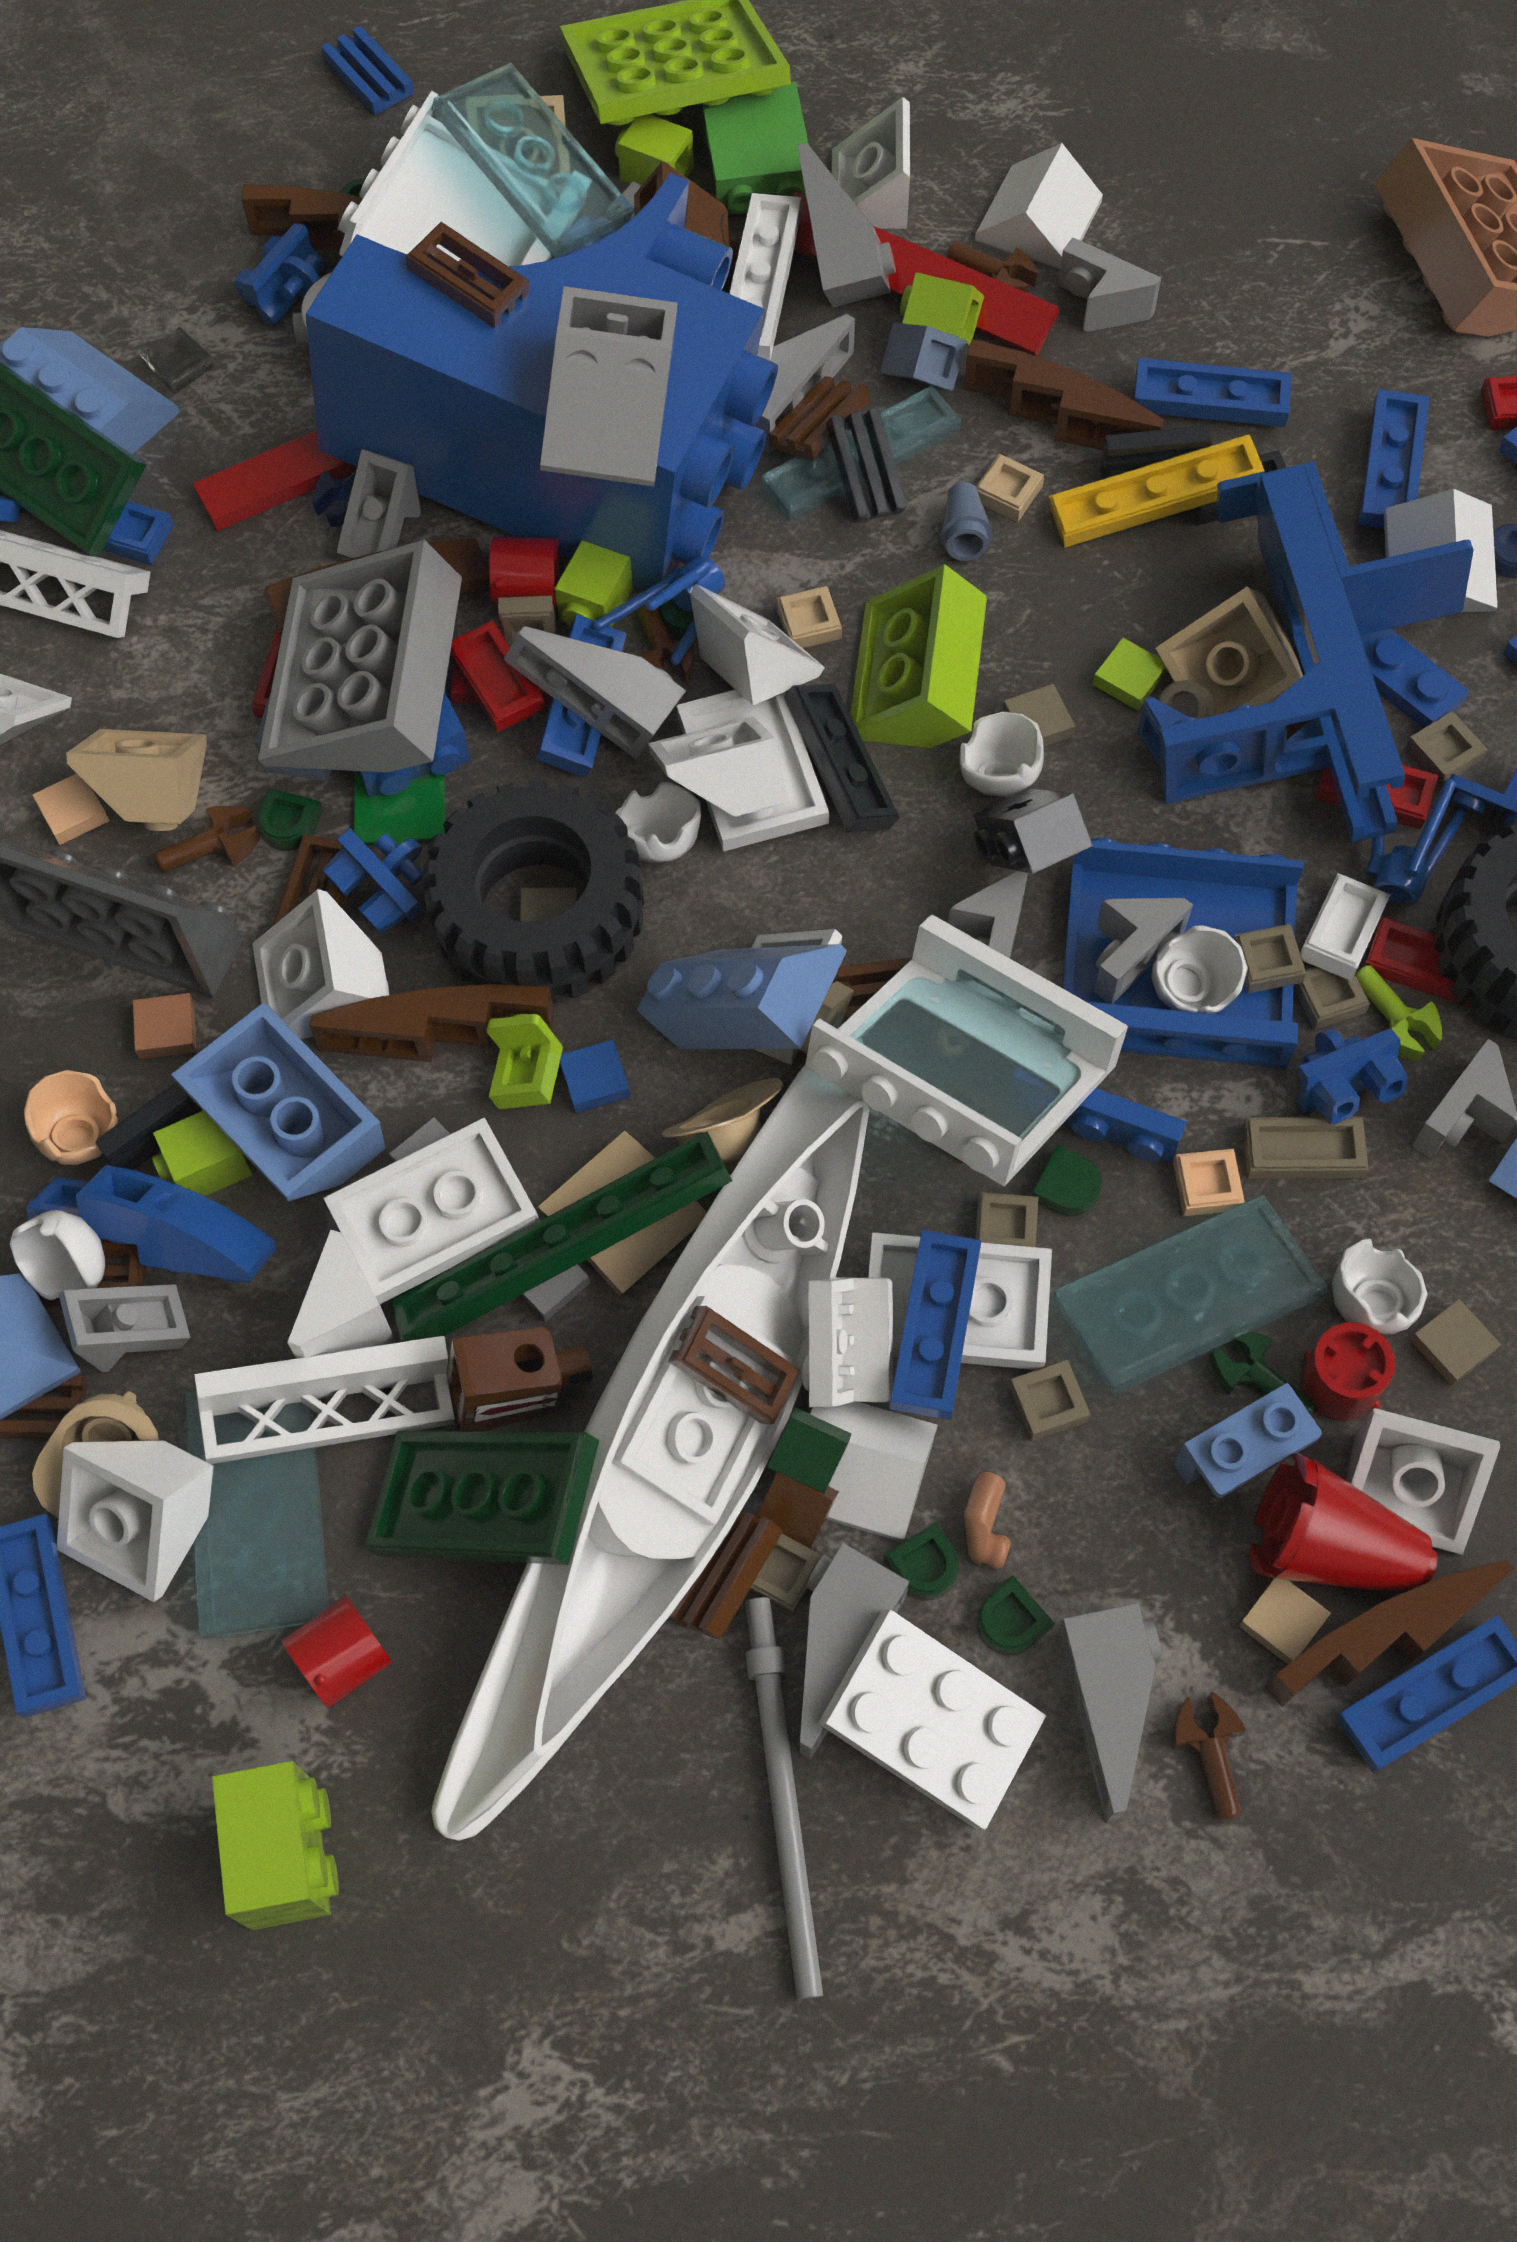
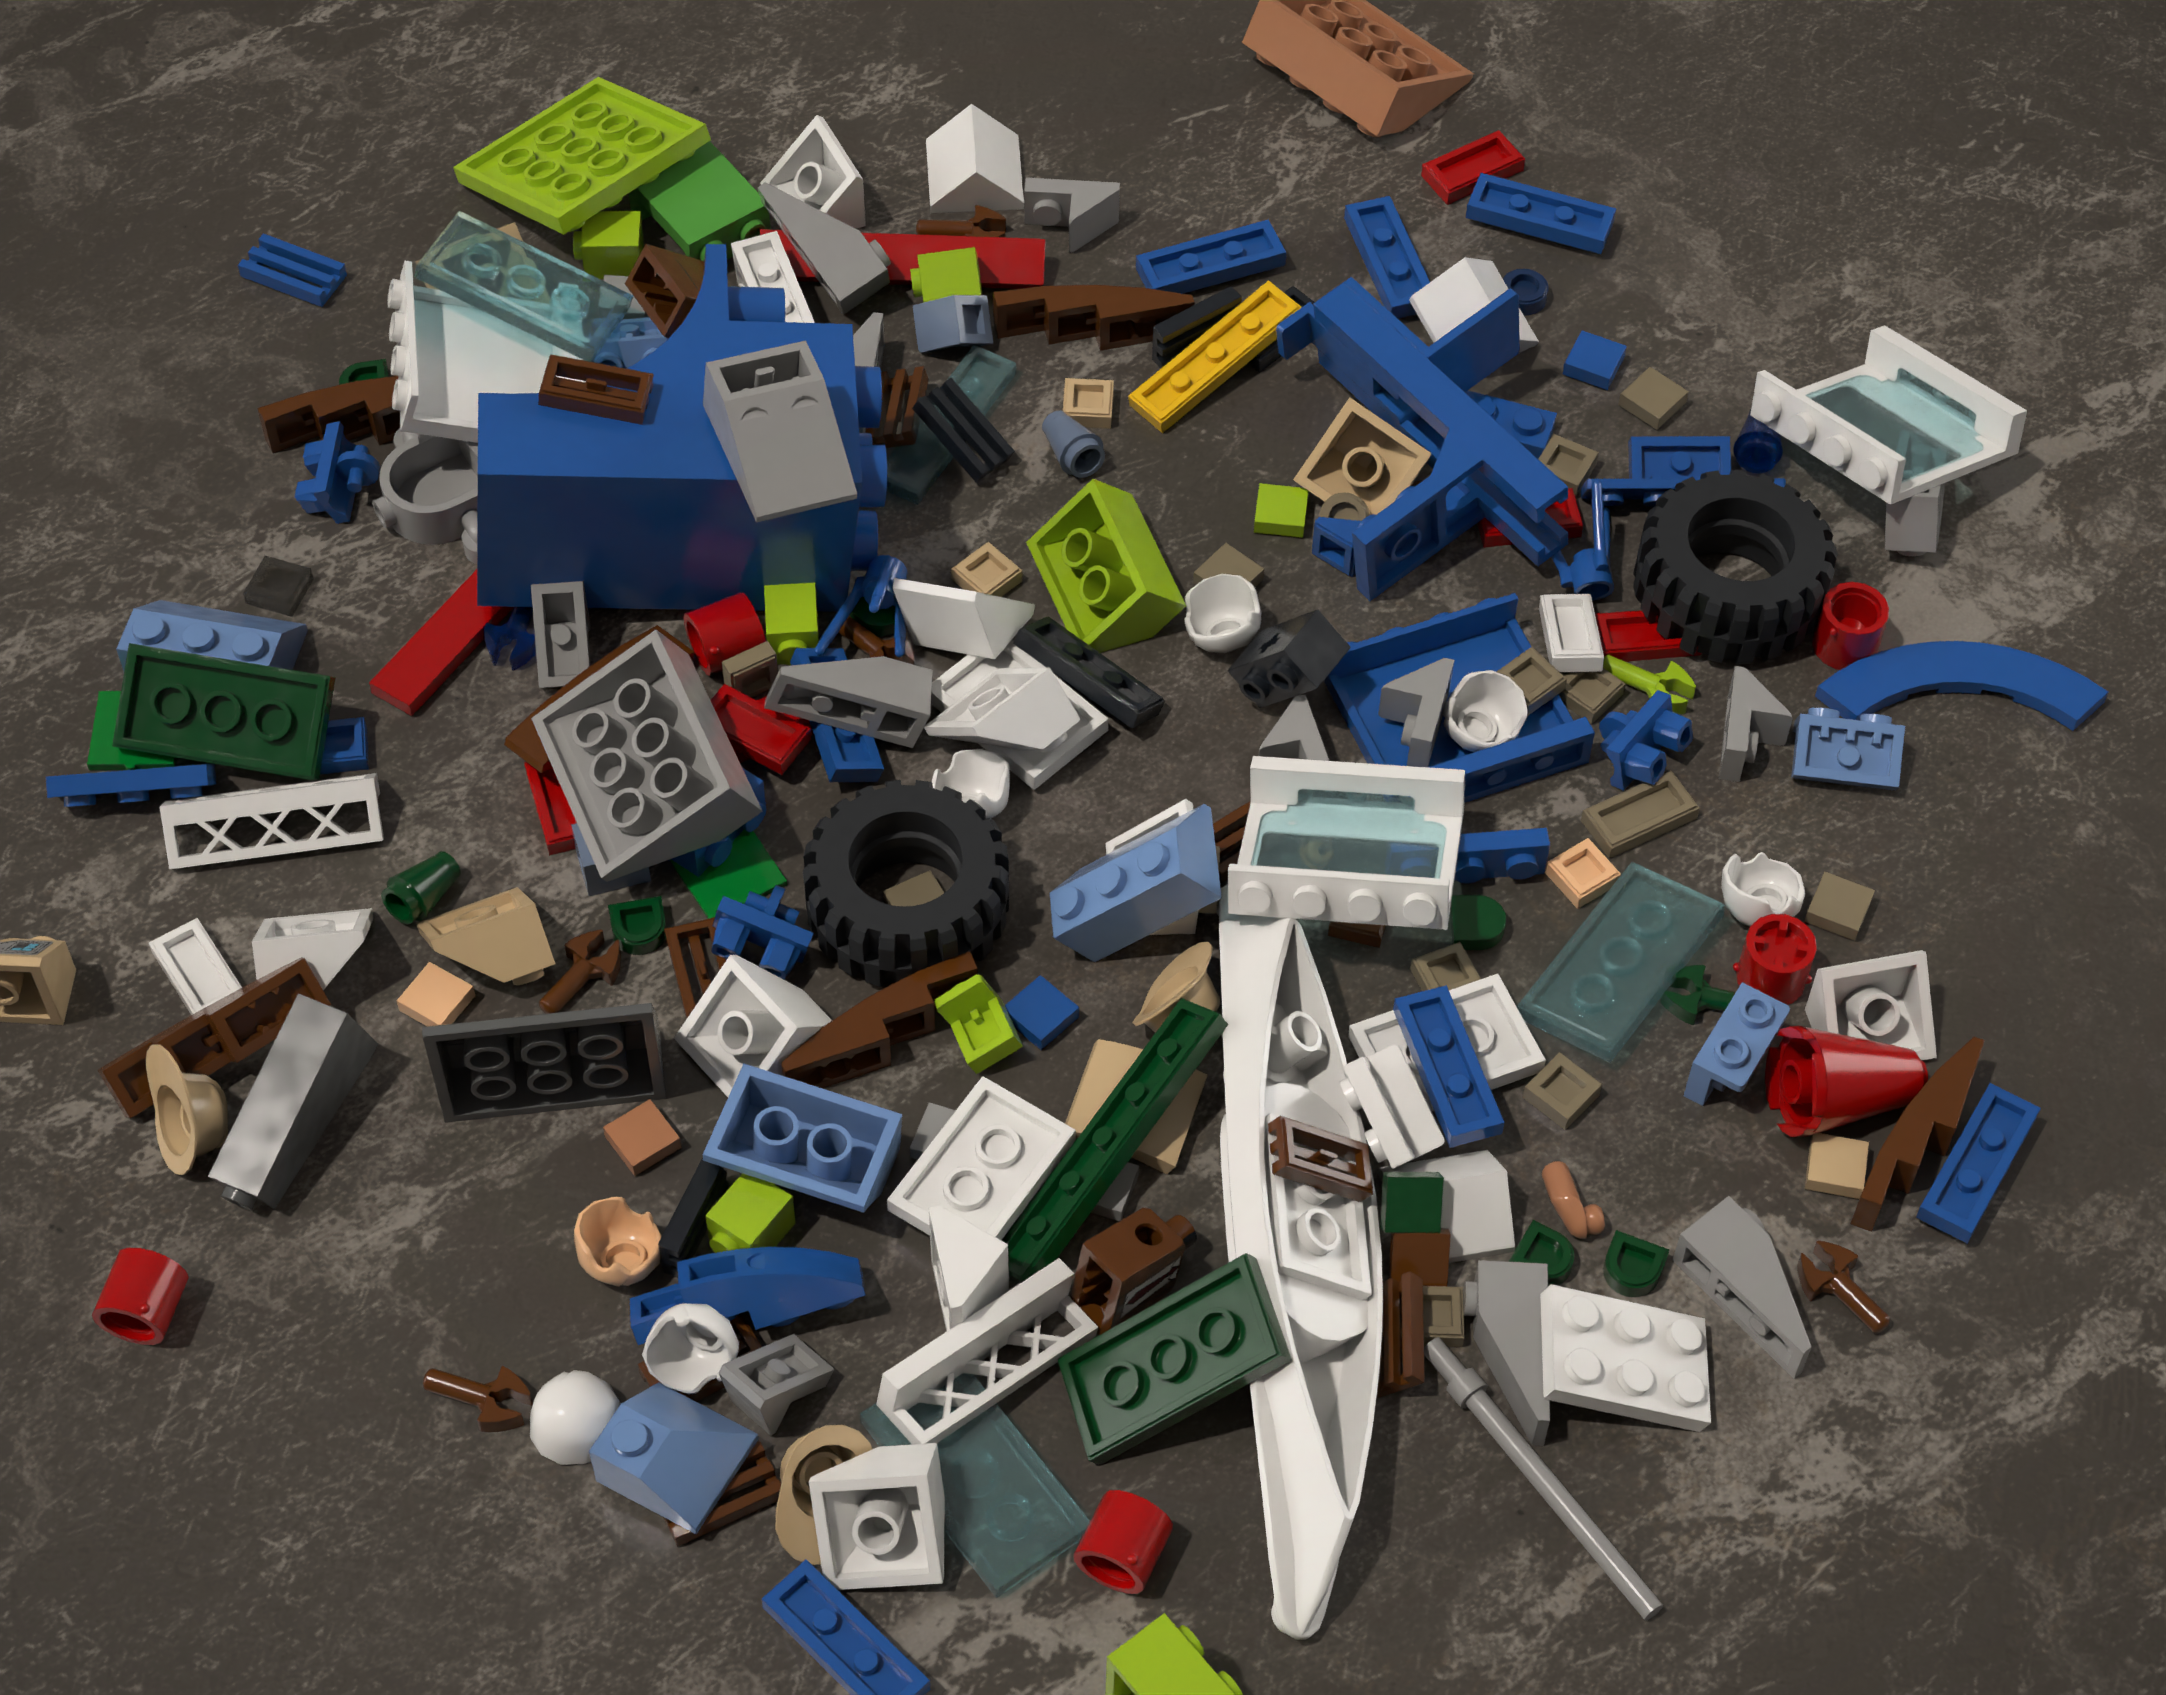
camera: 30 degrees left, 10 degrees down
(118, 696) = (419, 888): none -> dark green cone

